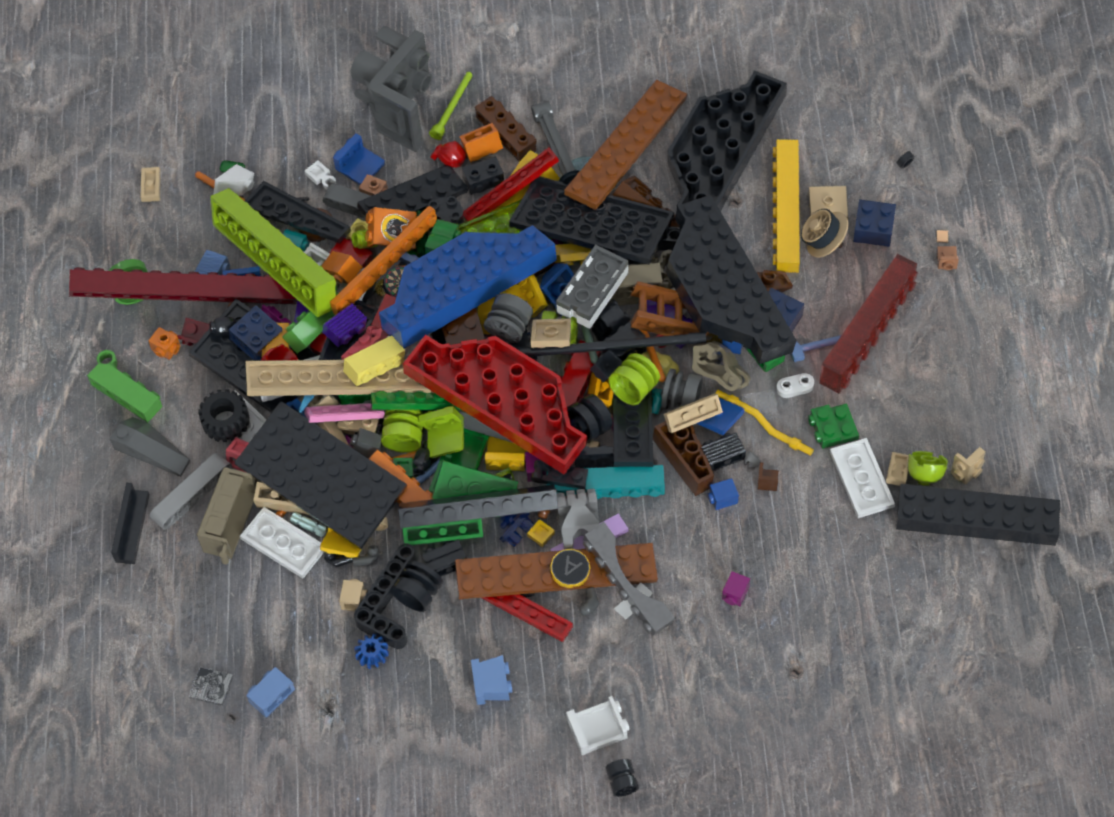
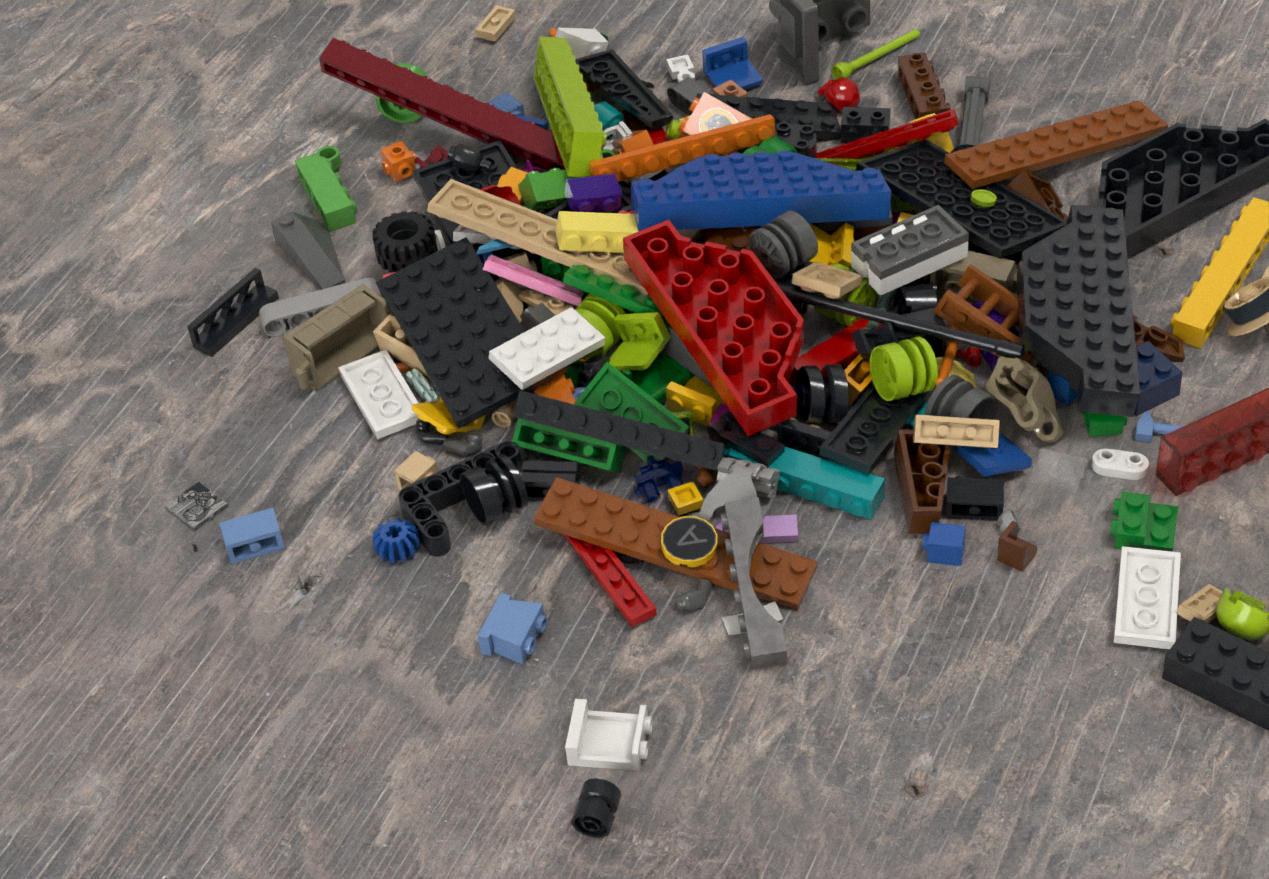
camera: 30 degrees right, 15 degrees down
(254, 332) = (493, 167): dark blue bracket -> none
(394, 467) = (546, 348): none -> white plate
(481, 142) = (884, 92): orange brick -> none
(609, 216) = (983, 198): none -> lime piece
(735, 589) = (892, 655): magenta brick -> none
(793, 443) = (1076, 523): yellow bar -> none

